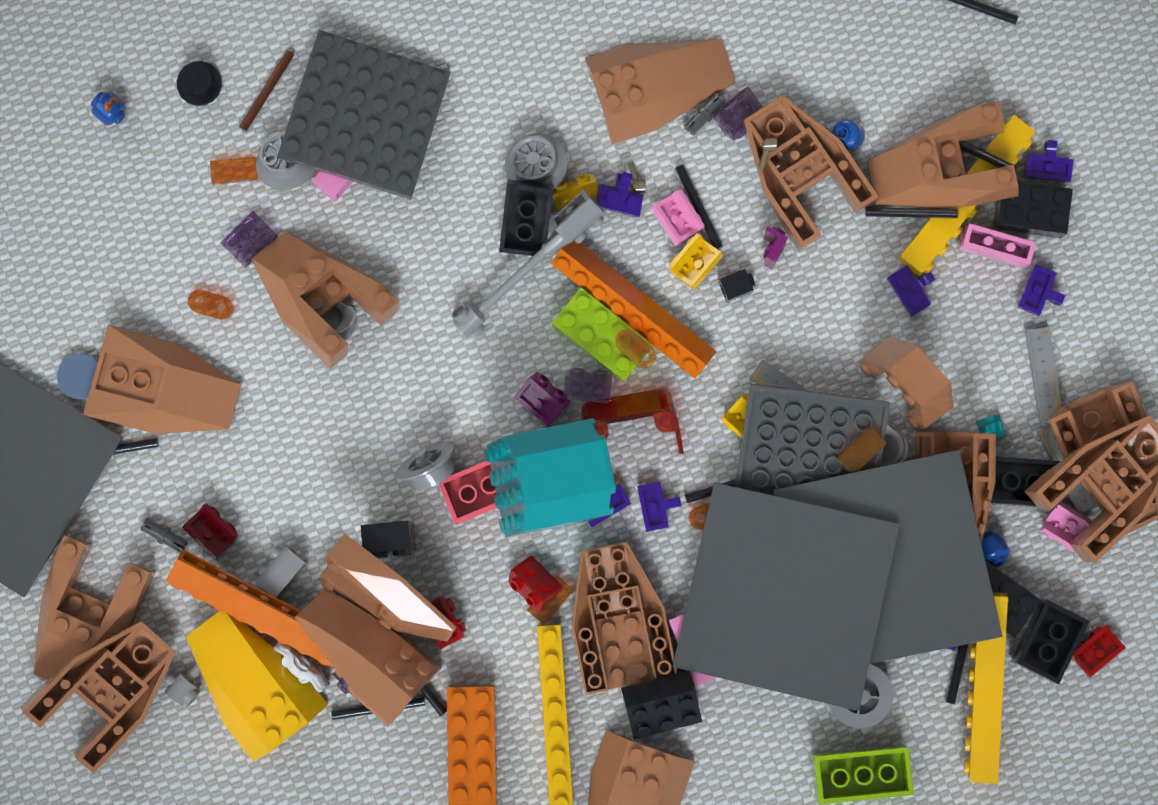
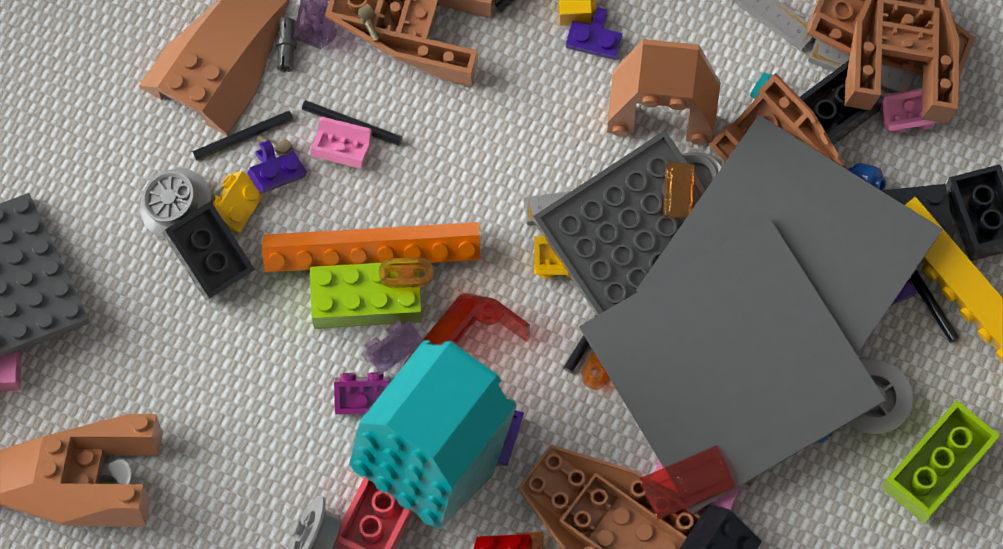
camera: 40 degrees left, 15 degrees down
(568, 227) = (254, 222): light grey bar -> none
(622, 153) = (242, 135): none -> black bar
(654, 506) = (547, 397): dark purple plate -> none
(687, 645) = (687, 482): none -> clear red piece
(694, 261) = (389, 167): yellow bracket -> none
(736, 285) = (444, 156): black brick -> none
(777, 242) = (442, 88): magenta bracket -> none

